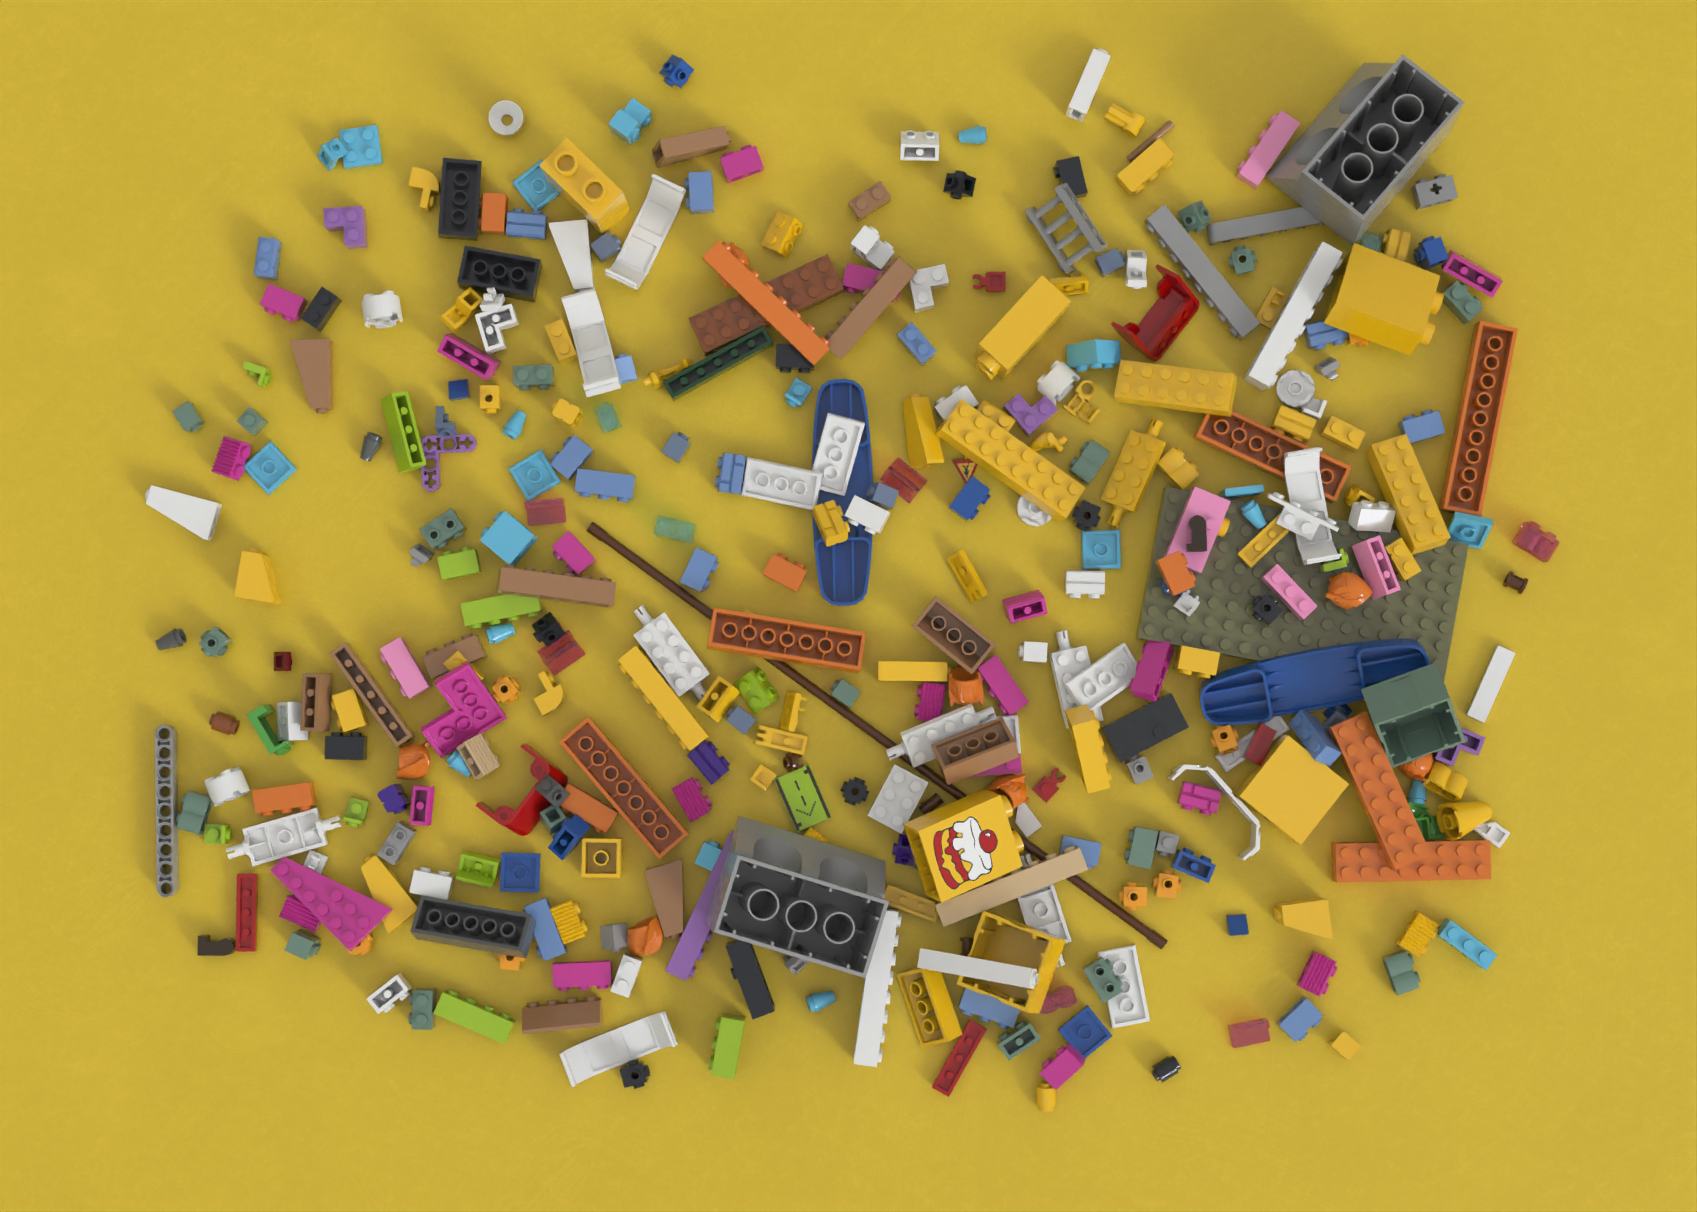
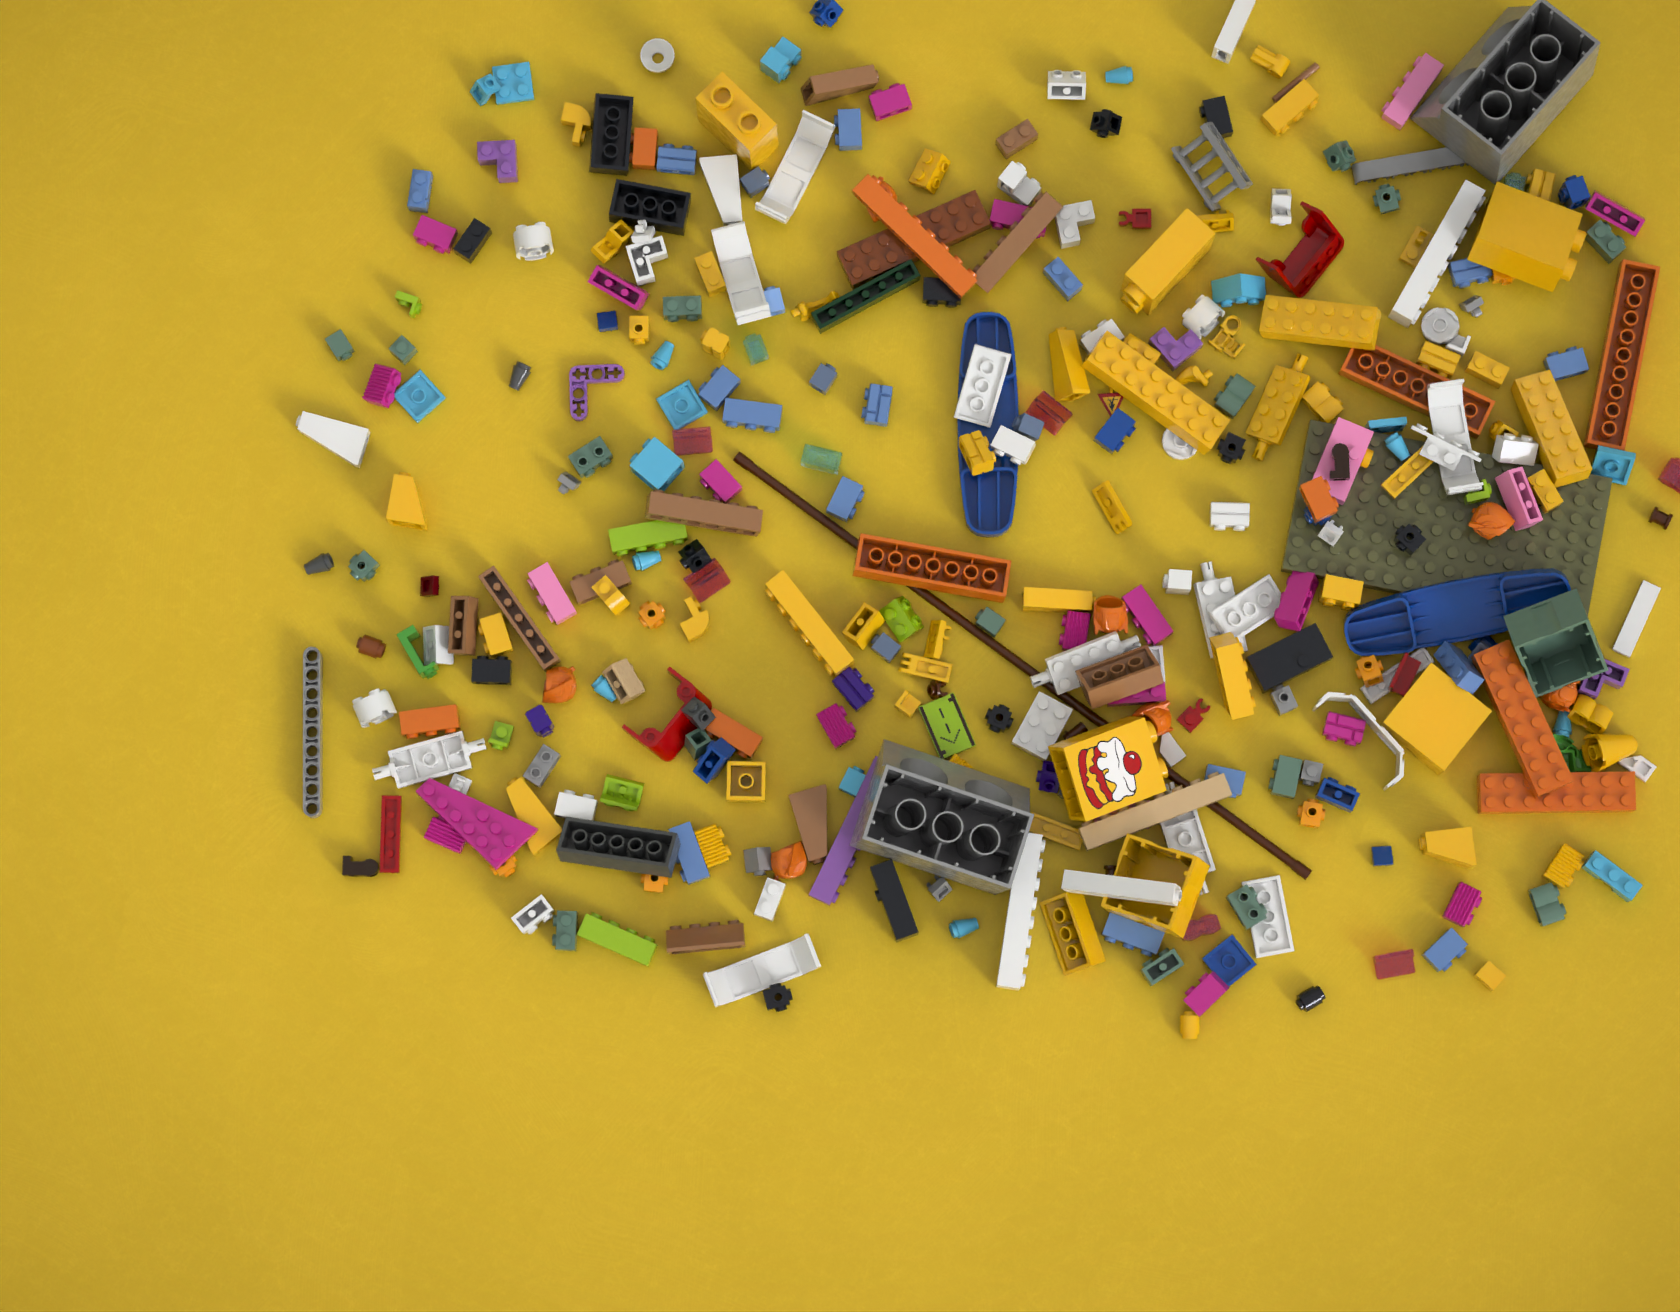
camera: 10 degrees right, 5 degrees down
(194, 813) = (340, 734): sand green brick -> none
(217, 833) = (362, 756): lime bracket -> none
(303, 944) = (448, 865): sand green brick -> none
(315, 367) = (466, 299): medium nougat slope -> none
(403, 431) = (553, 361): lime brick -> none
(422, 805) = (567, 728): dark pink brick -> none
(442, 424) = (593, 356): sand blue bracket -> none
(459, 564) = (606, 491): lime brick -> none
(471, 713) = (618, 635): dark pink plate -> none
(520, 872) = (664, 797): blue plate -> none
(535, 187) = (684, 123): medium azure tile -> none
(582, 974) = (725, 899): dark pink brick -> none
(624, 787) = (769, 712): orange brick -> none
(671, 653) = (816, 581): white plate -> none
(726, 1045) = (870, 968): lime brick -> none
(781, 483) = (927, 414): white tile -> none
(784, 572) = (930, 502): orange brick -> none
(797, 393) = (944, 327): medium azure bracket -> none
(953, 635) = (1099, 564): medium nougat slope -> none
(959, 1058) = (1102, 985): red plate -> none
(1024, 606) = (1169, 537): dark pink brick -> none
(1101, 549) = (1246, 483): medium azure tile -> none
(1110, 262) = (1255, 200): sand blue brick -> none
(1139, 899) = (1284, 825): light orange brick -> none
(1201, 272) = (1346, 210): light grey brick -> none
(1288, 592) = (1432, 522): bright pink brick -> none
(1425, 198) = (1571, 140): light grey brick -> none

